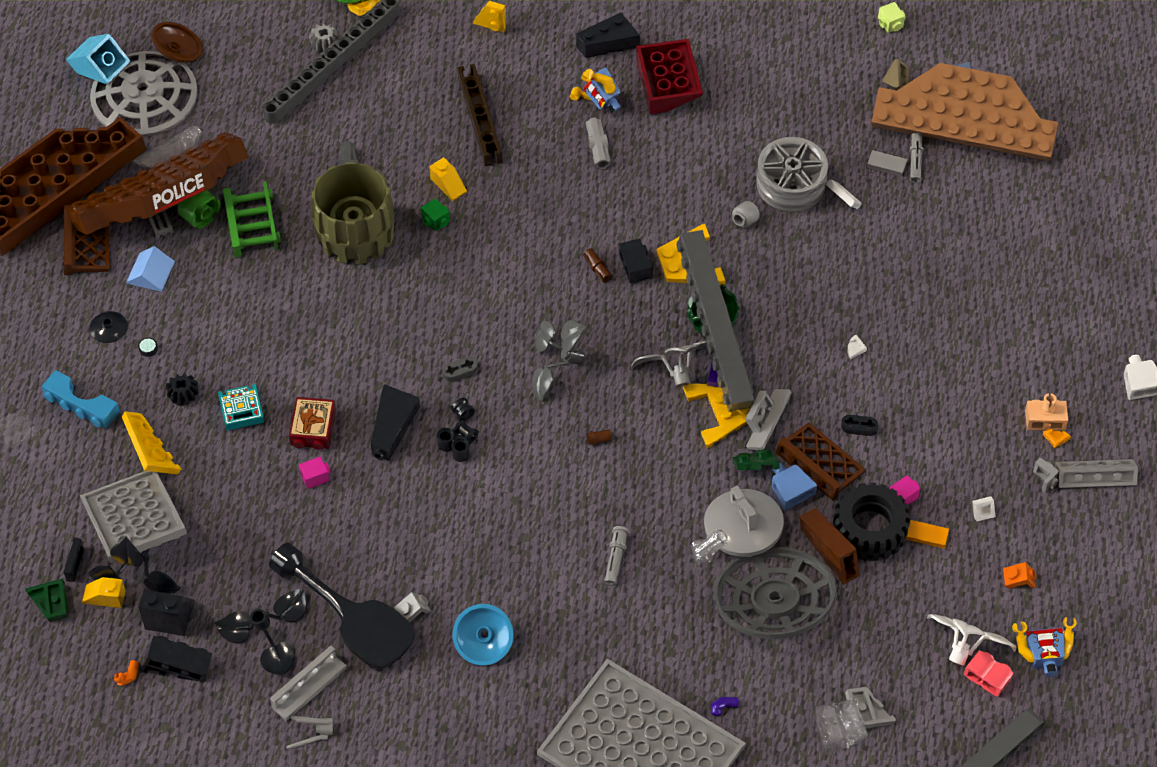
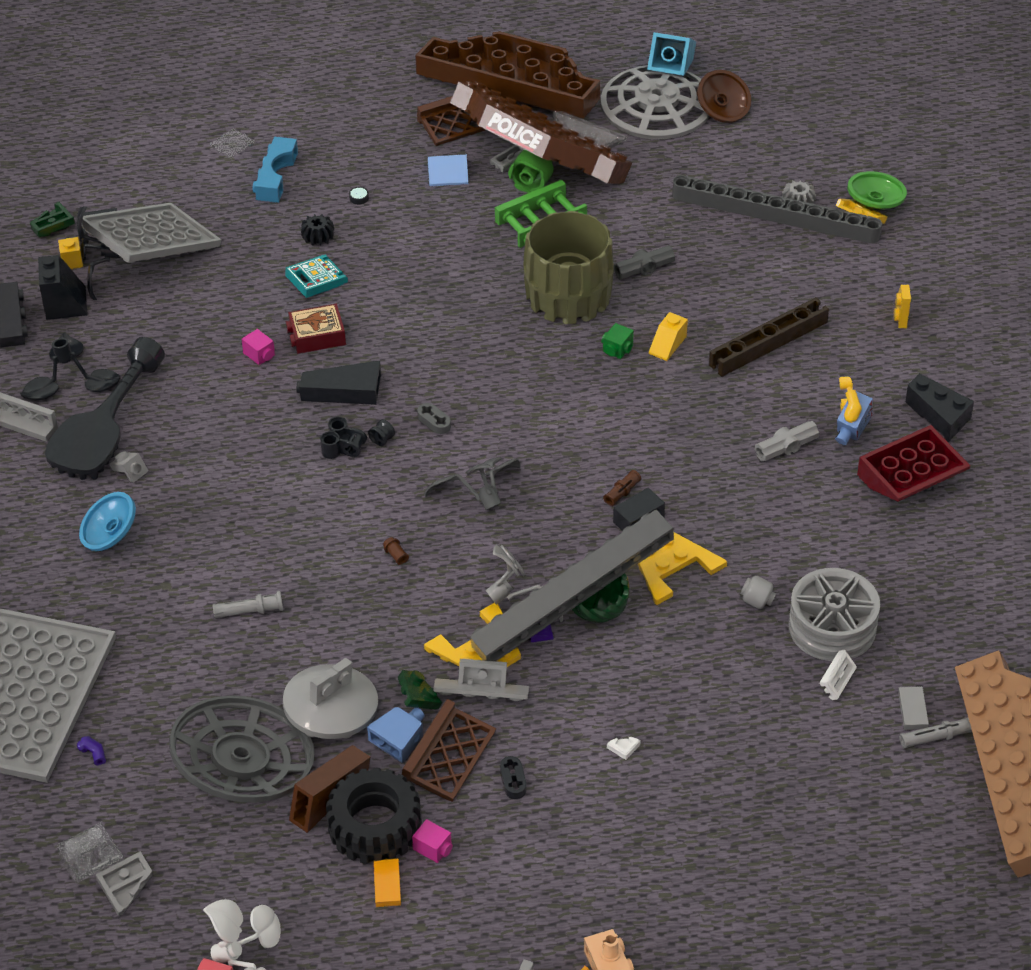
camera: 70 degrees right, 10 degrees down
(111, 332) = (371, 165): black dish -> none
(148, 446) = (240, 227): yellow wing -> none
(705, 548) = (282, 676): clear piece -> none
(983, 508) = (441, 927): white tile -> none

